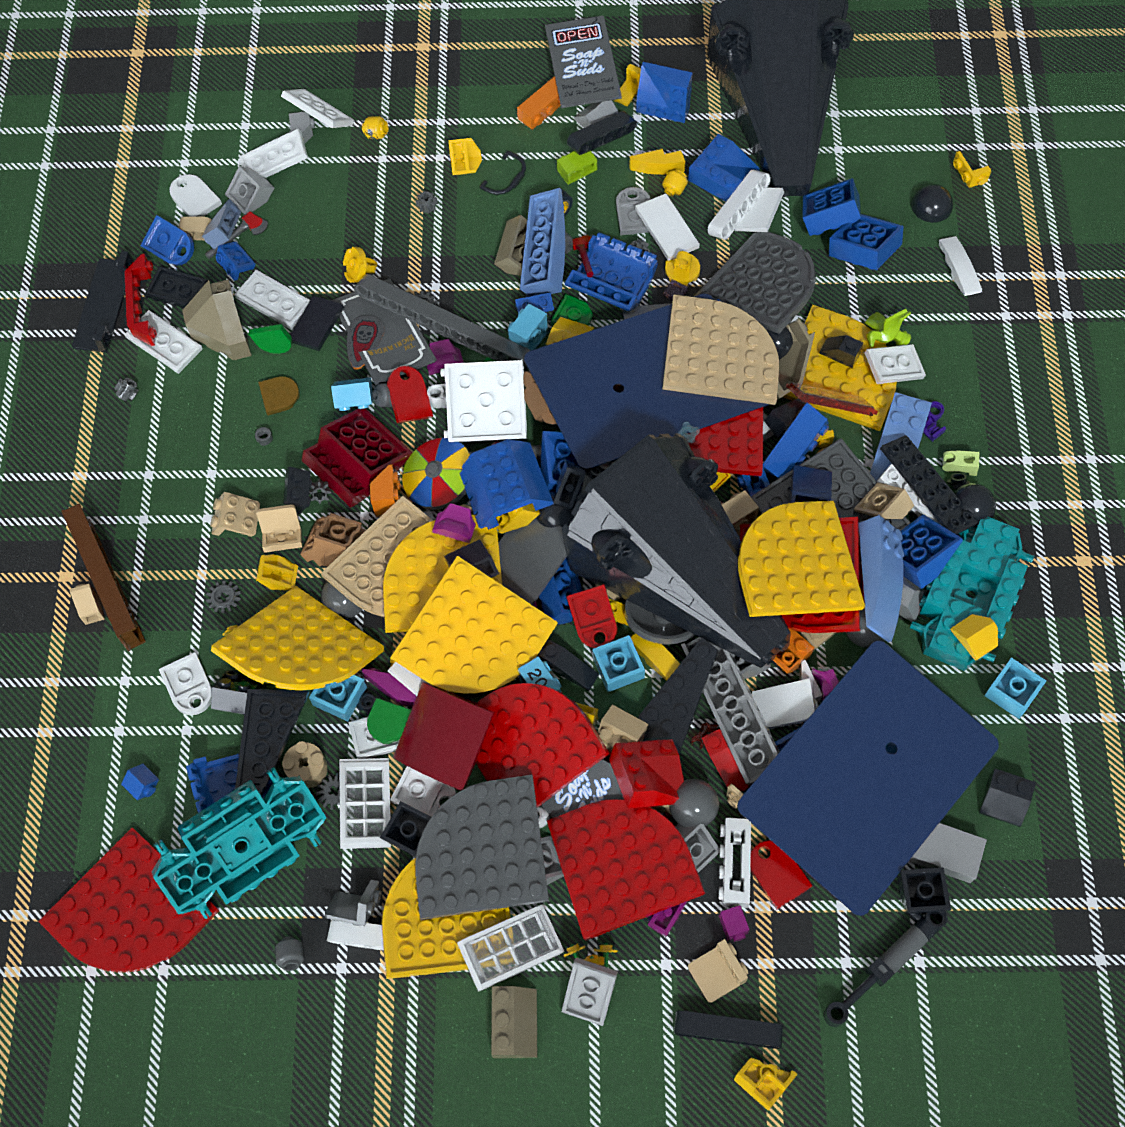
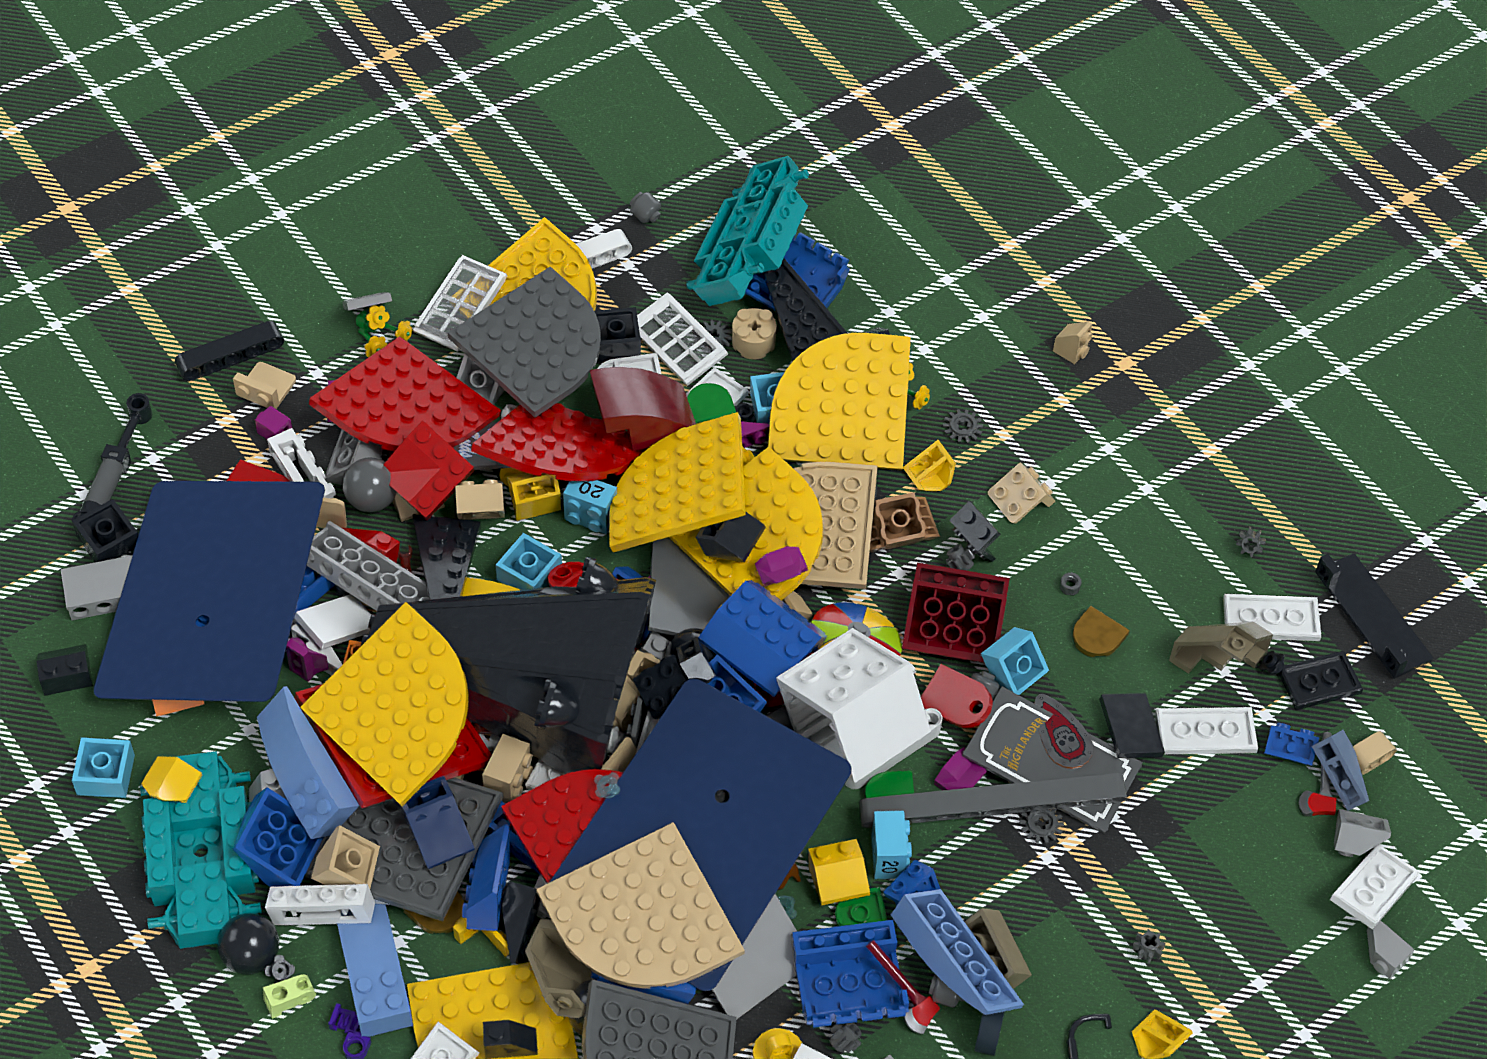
camera: 140 degrees right, 10 degrees down
(103, 577) = (1084, 362): reddish brown tile -> none
(119, 913) = (834, 157): red plate -> none
(136, 272) = (1289, 595): red slope -> none
(140, 782) = (883, 245): blue brick -> none
(167, 241) = (1379, 715): blue tile -> none
(186, 682) = (928, 342): white tile -> none
(195, 198) = (1417, 793): white tile -> none
(272, 338) = (1154, 667): green tile -> none
(280, 528) = (956, 496): tan bracket -> none
(317, 108) = (1392, 984): white tile -> none
(352, 907) = (619, 258): dark grey bracket -> none
(357, 264) = (1148, 812): yellow tile -> none
(375, 127) = (1302, 1007): yellow head -> none
(384, 491) = (886, 586): orange slope -> none
(514, 1022) = (418, 260): dark tan slope -> none
(567, 665) = (588, 541): black slope -> none
(675, 288) = (764, 1018): clear purple tile -> none
(764, 1081) = (176, 335): yellow slope -> none
(832, 399) = (477, 941): piece -> none
(928, 485) = (309, 914): black bracket -> none

